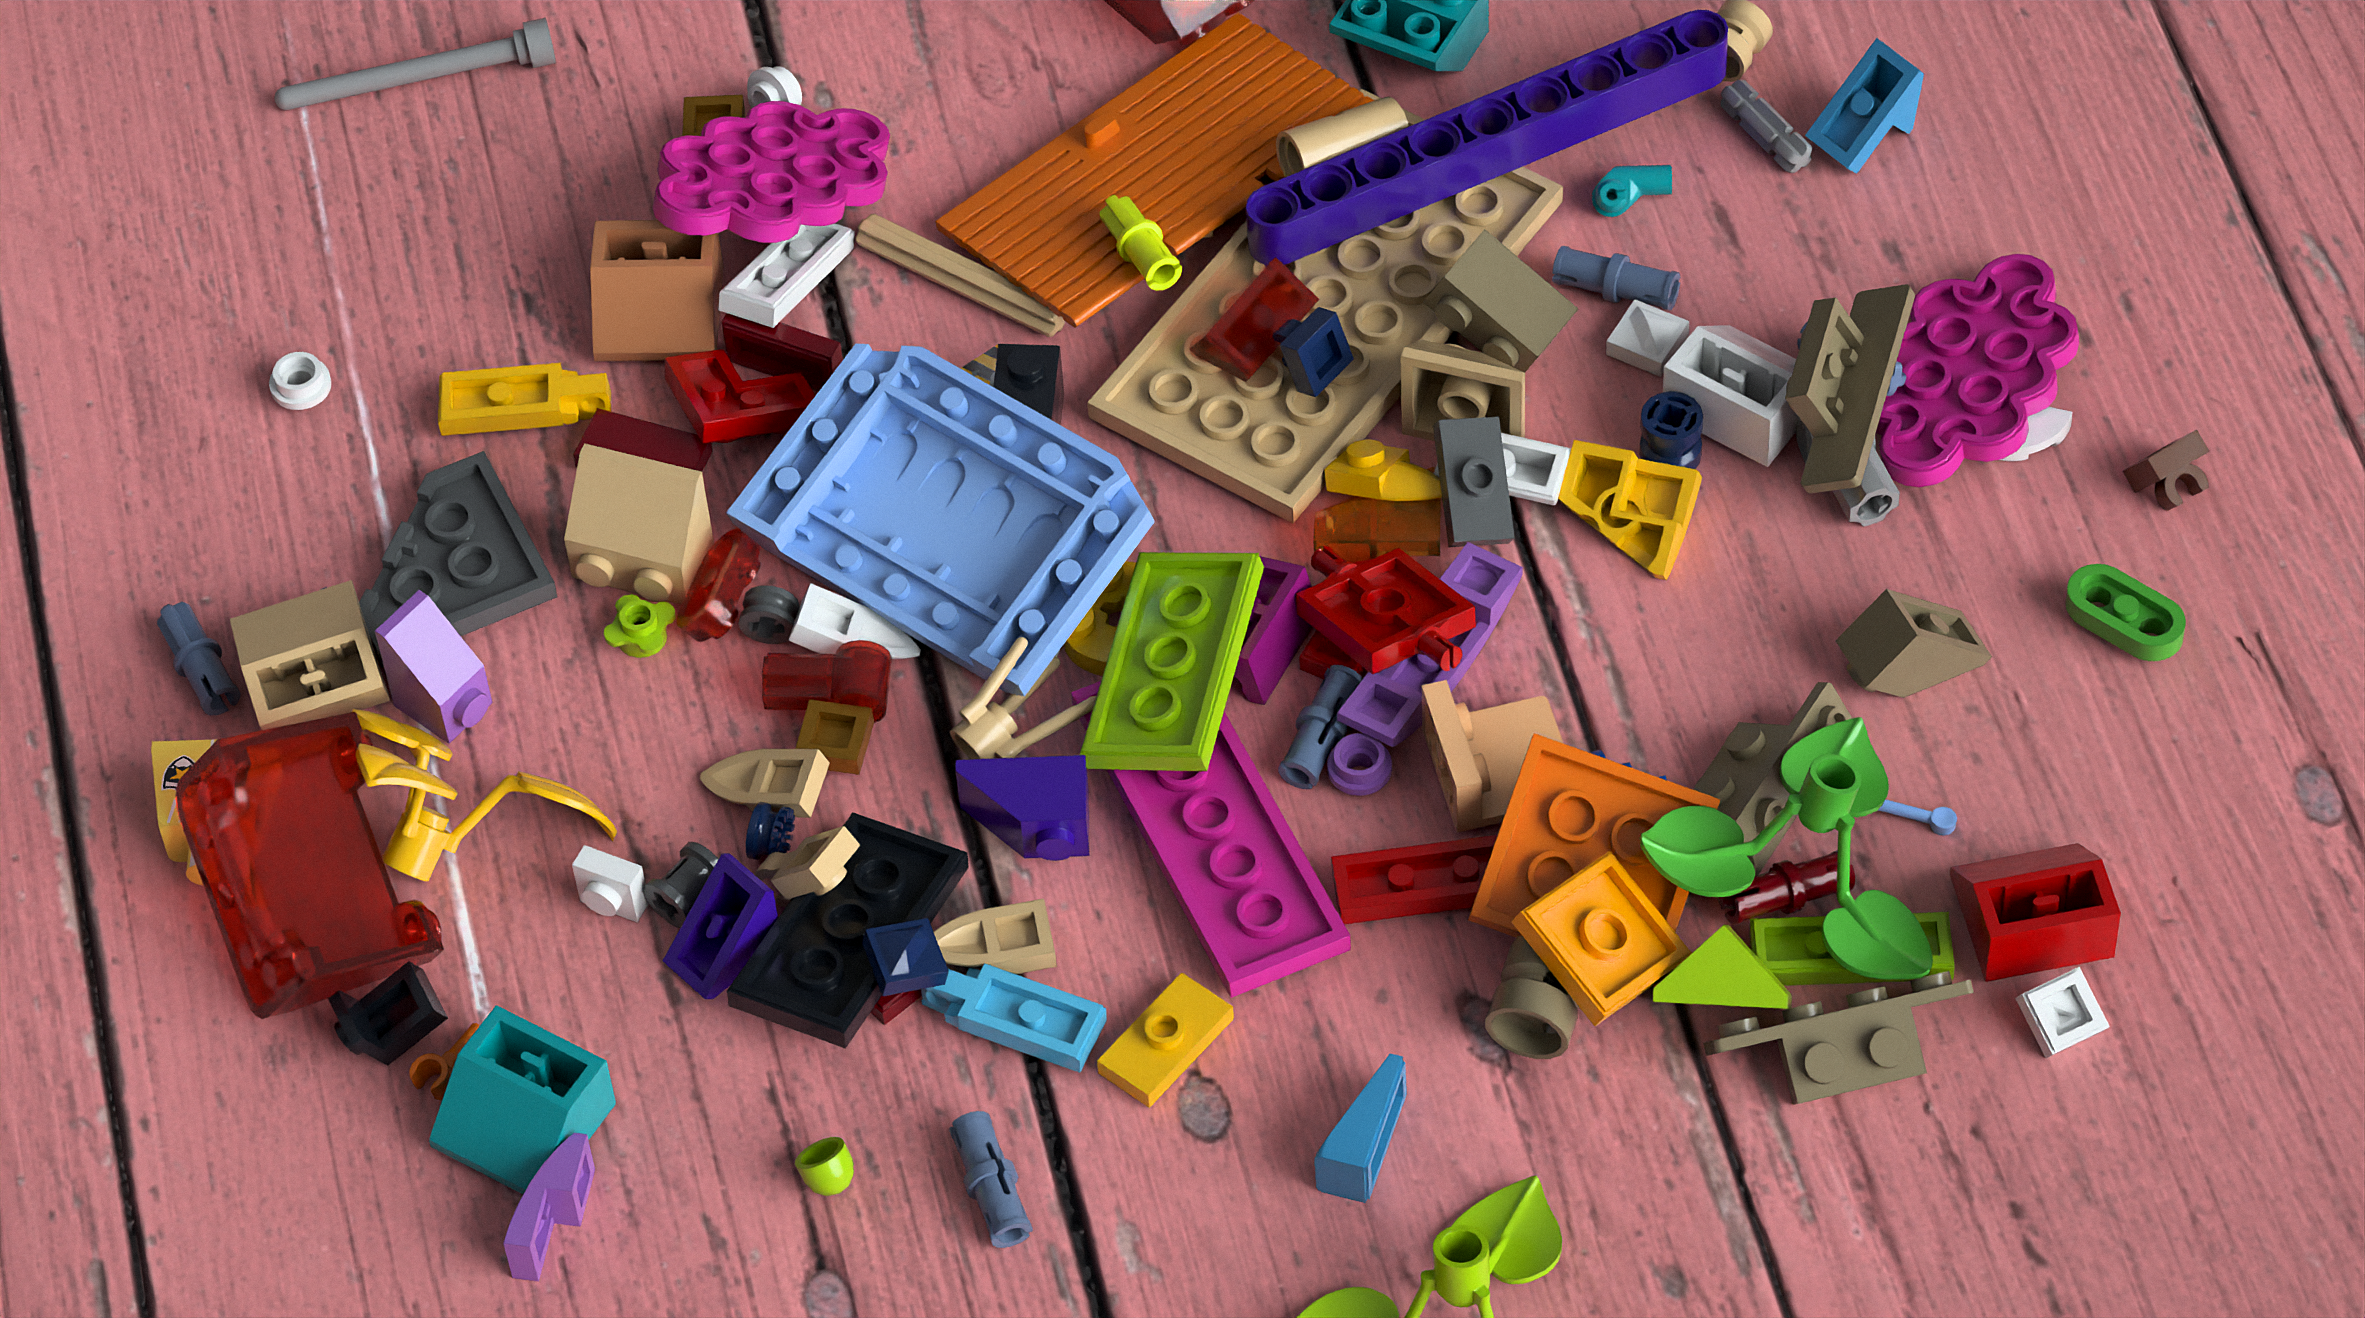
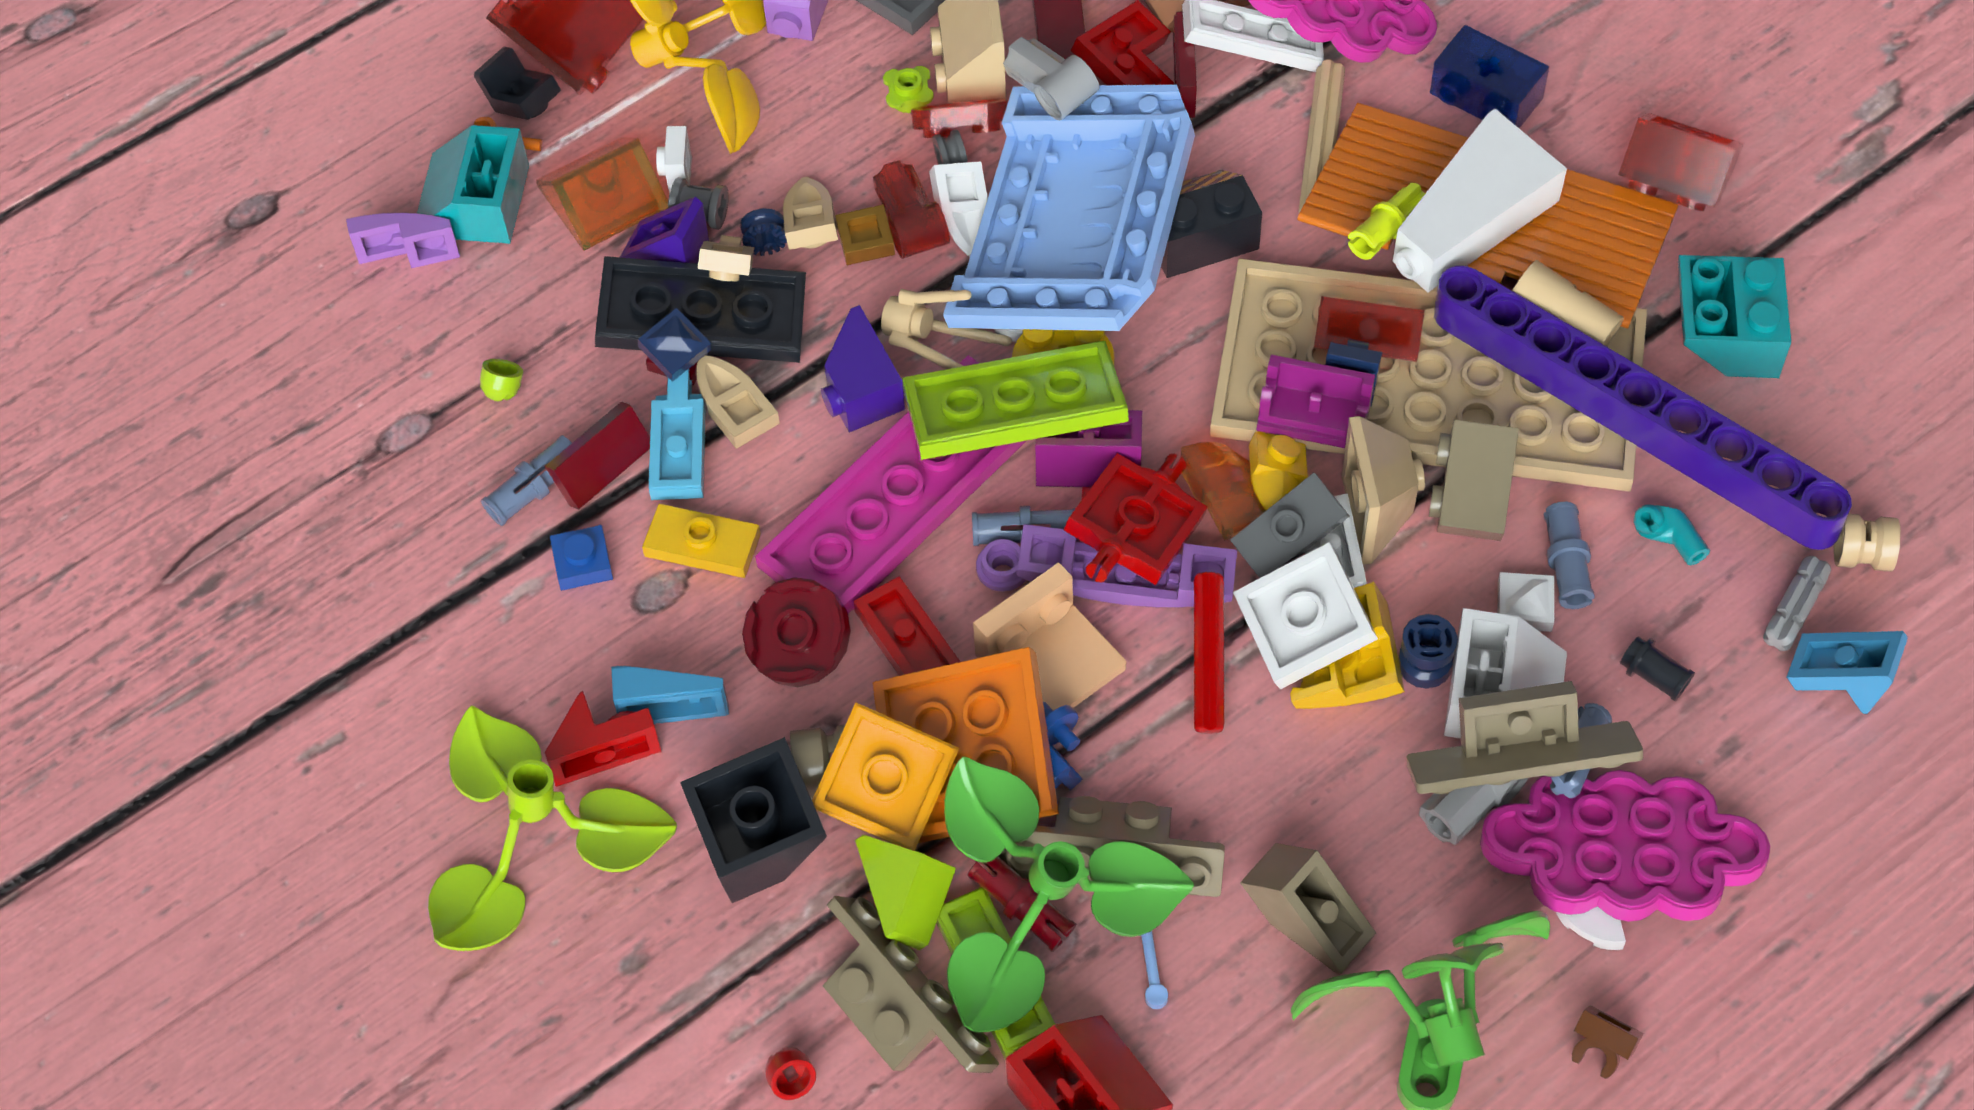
camera: 65 degrees right, 5 degrees up
(595, 975) = (604, 191): none -> clear orange slope
(779, 452) = (1056, 82): none -> light grey piece
(979, 97) = (1488, 75): none -> clear blue brick
(999, 1095) = (599, 455): none -> dark red tile
(1121, 1166) = (581, 557): none -> blue plate
(1163, 154) = (1477, 201): none -> white slope
(1335, 397) = (1312, 400): none -> magenta hinge
(1349, 978) = (796, 632): none -> dark red tile
(1385, 1223) = (587, 748): none -> red slope
(1579, 614) = (1208, 652): none -> red axle
(1585, 1081) = (755, 818): none -> black slope
(1586, 510) = (1305, 615): none -> white plate
(1772, 267) = (1656, 667): none -> black pin
(1885, 1166) = (798, 1084): none -> red hinge
(2114, 562) = (1451, 1023): none -> bright green plant

